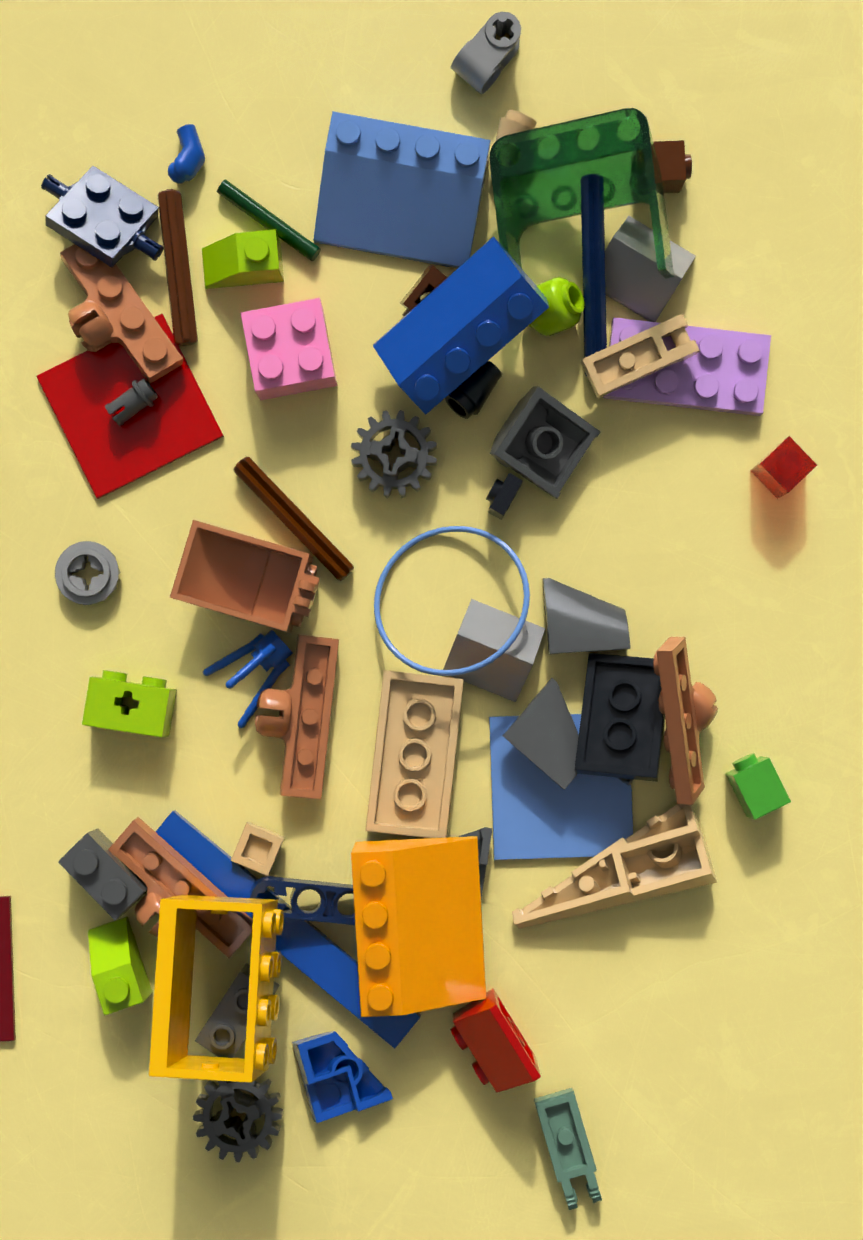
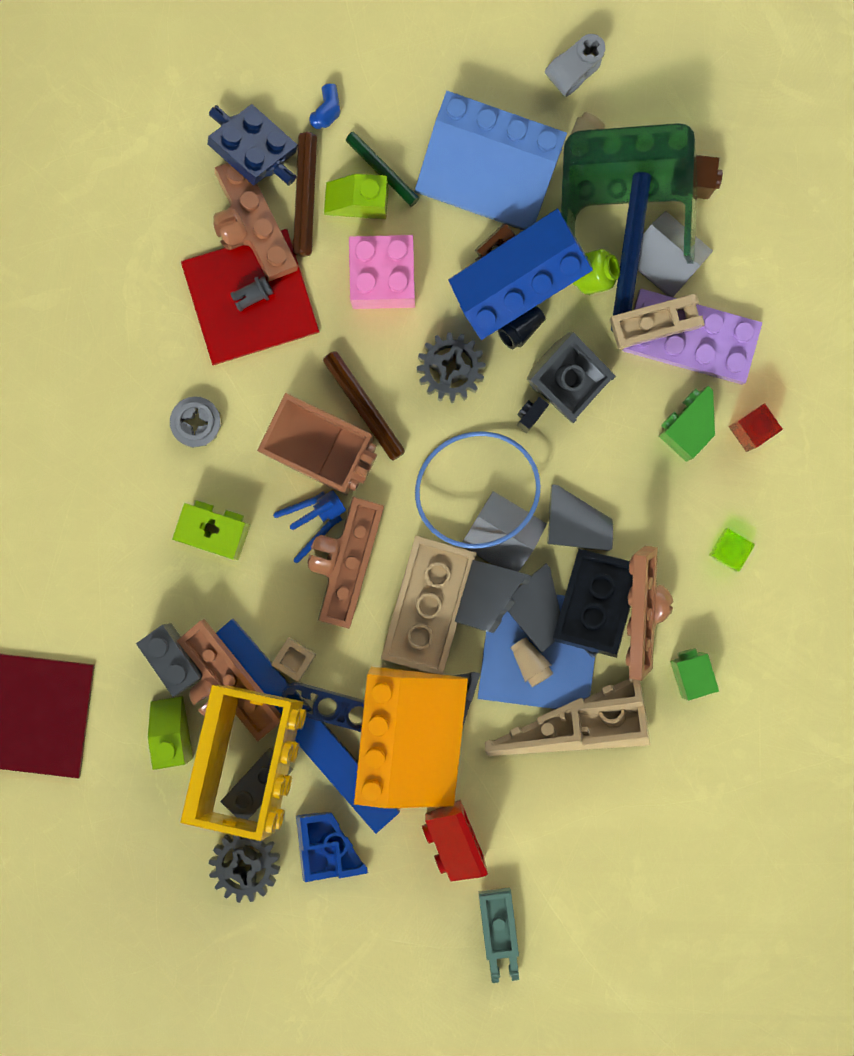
camera: 10 degrees right, 0 degrees up
(486, 730) = (488, 595): none -> dark grey slope
(553, 804) = (531, 662): none -> tan cone
(706, 478) = (693, 426): none -> bright green slope
(779, 623) = (732, 550): none -> clear neon green plate

